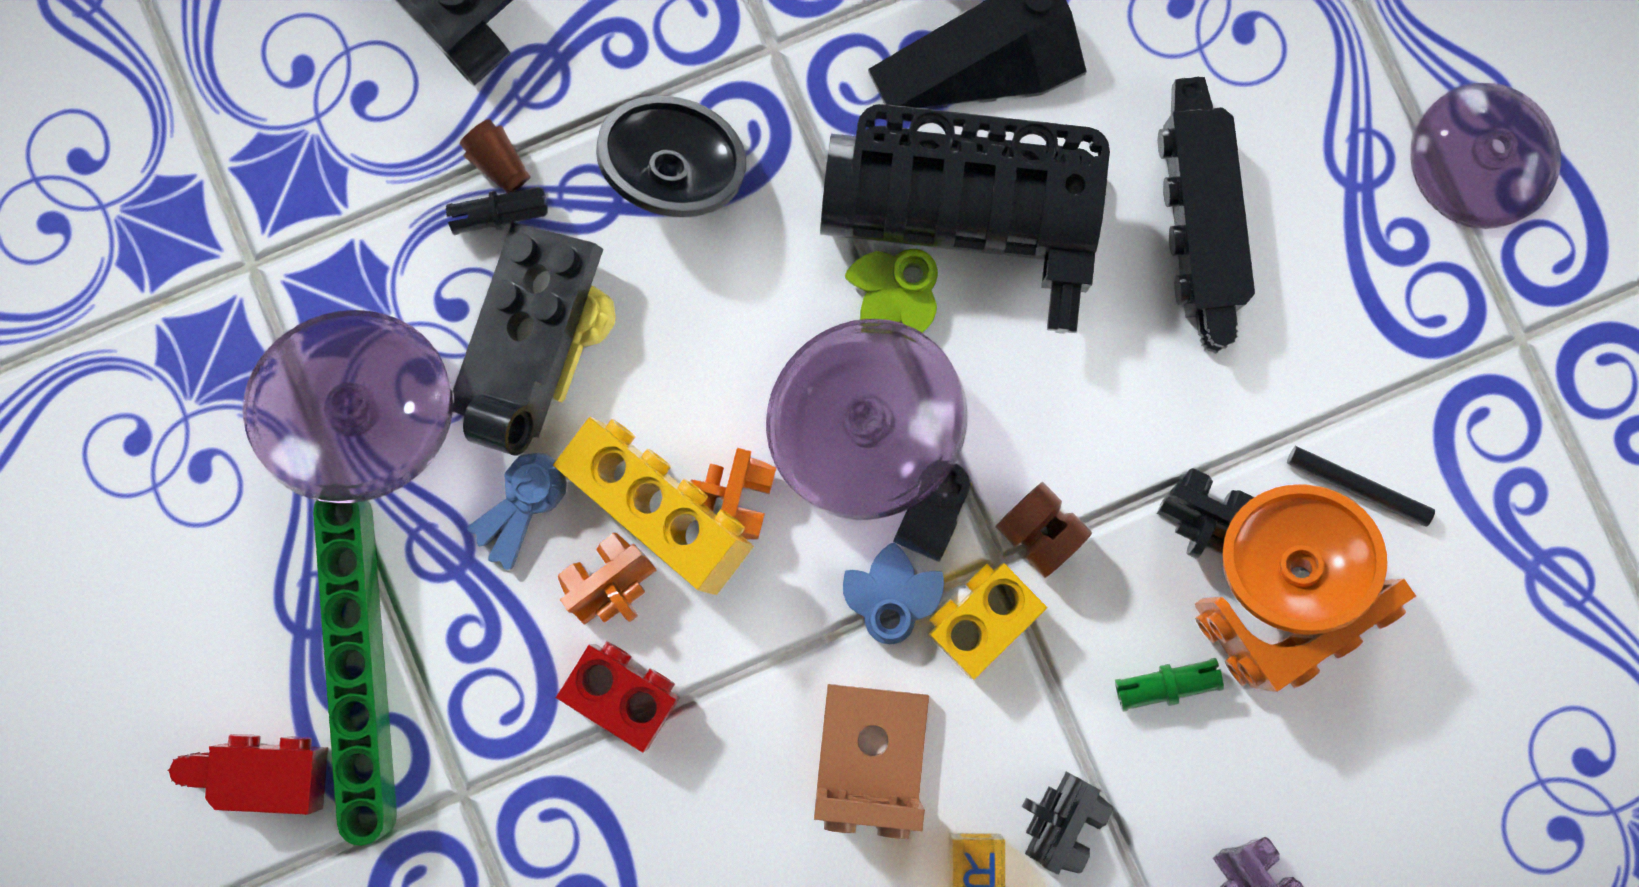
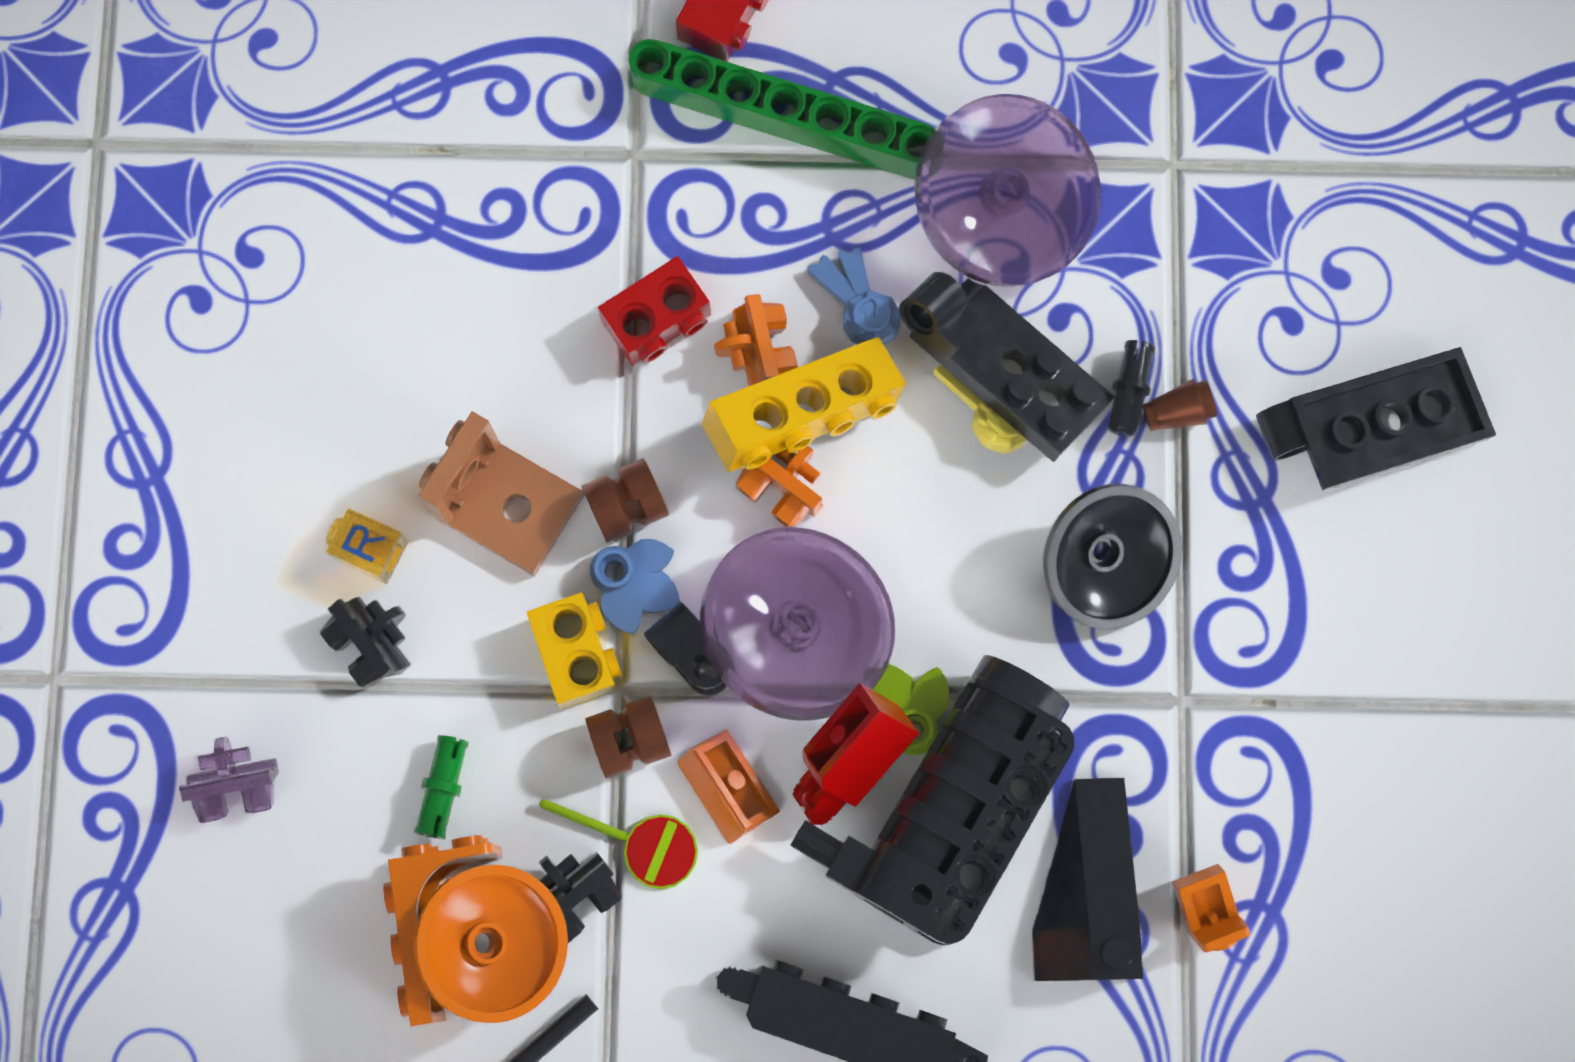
camera: 110 degrees right, 5 degrees down
(821, 637) = (625, 500): none -> copper wheel
(964, 313) = (851, 753): none -> red hinge
(1041, 420) = (727, 786): none -> orange slope
(1129, 459) = (656, 851): none -> piece

